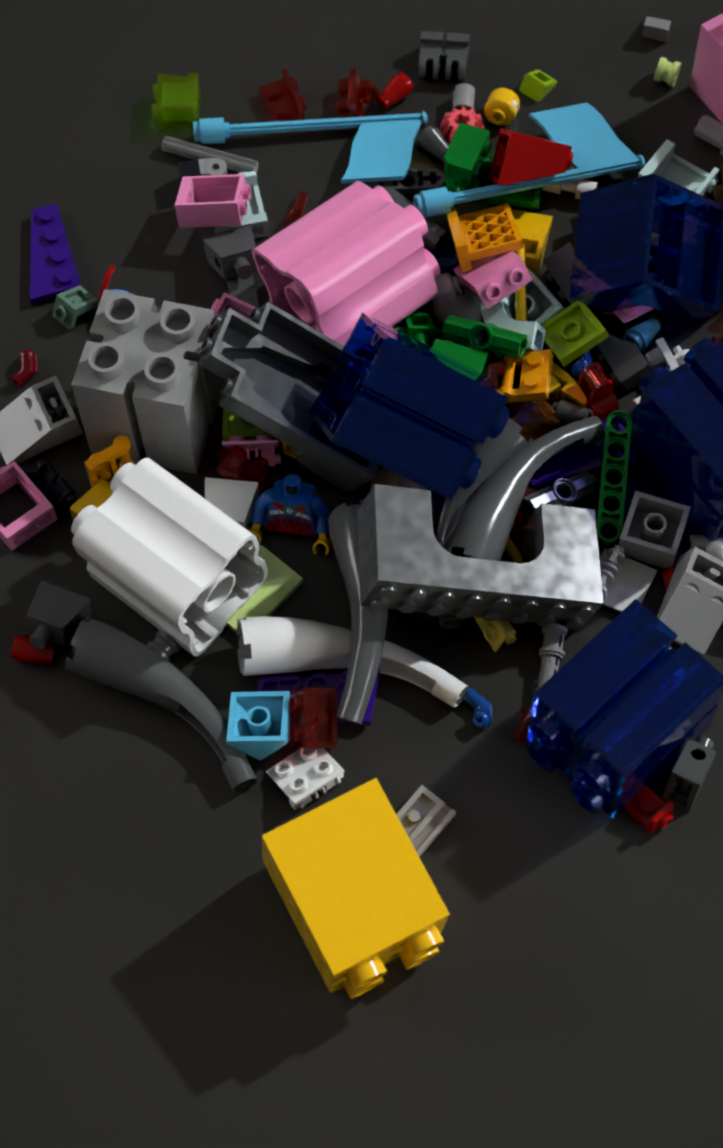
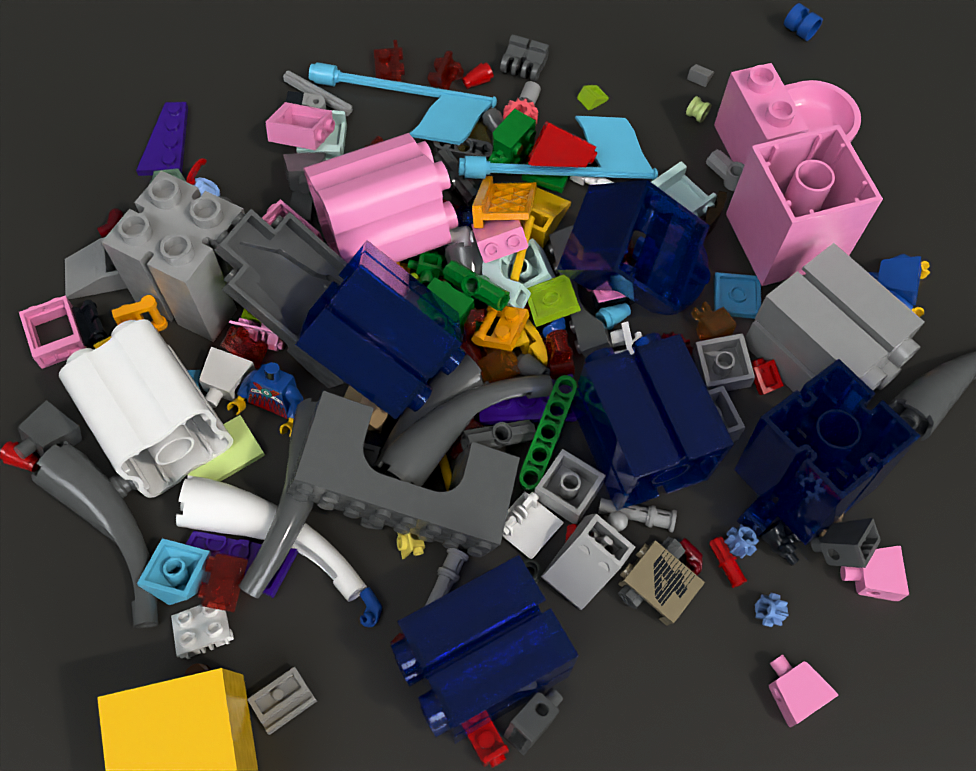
camera: 10 degrees right, 0 degrees up
(176, 100) = (307, 45): clear neon green hips -> none
(504, 106) = (557, 106): yellow head -> none

